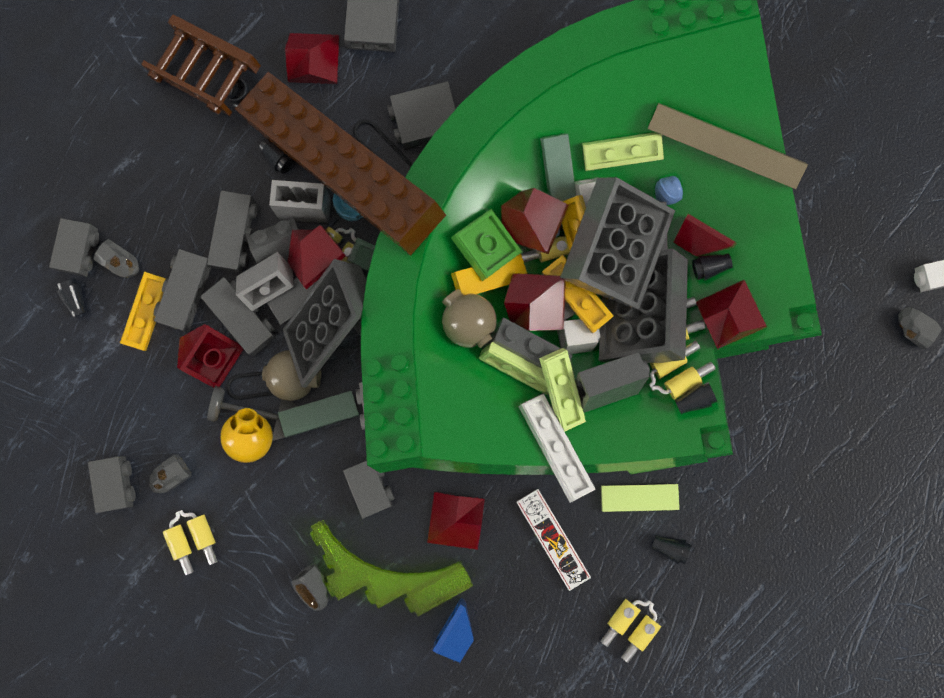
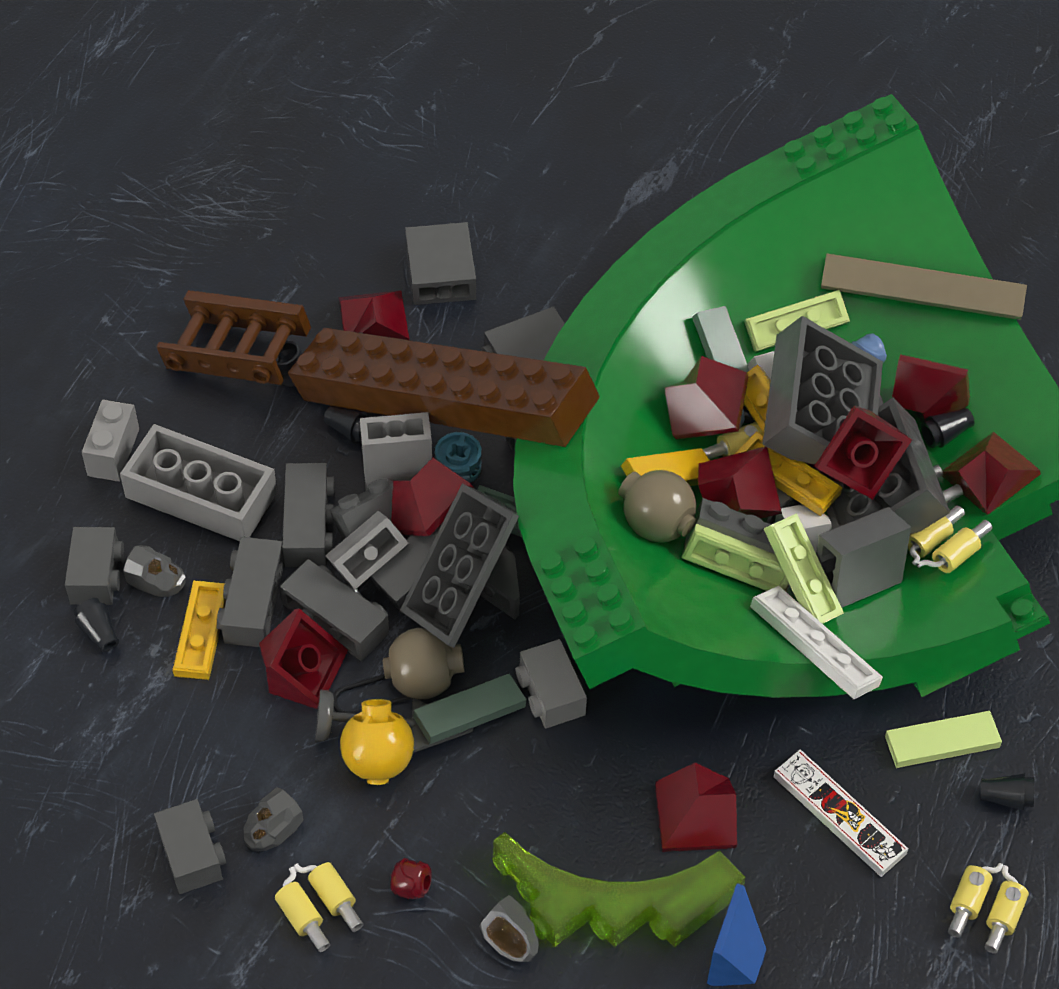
camera: 10 degrees left, 30 degrees down
(99, 140) = (110, 440): none -> light grey brick
(156, 193) = (199, 483): none -> light grey brick
(253, 536) = (410, 879): none -> dark red piece
(368, 489) = (562, 786): dark grey brick -> none
(486, 244) = (657, 433): bright green tile -> none
(633, 304) = (863, 451): none -> dark red slope
(696, 399) = (982, 559): black cone -> none

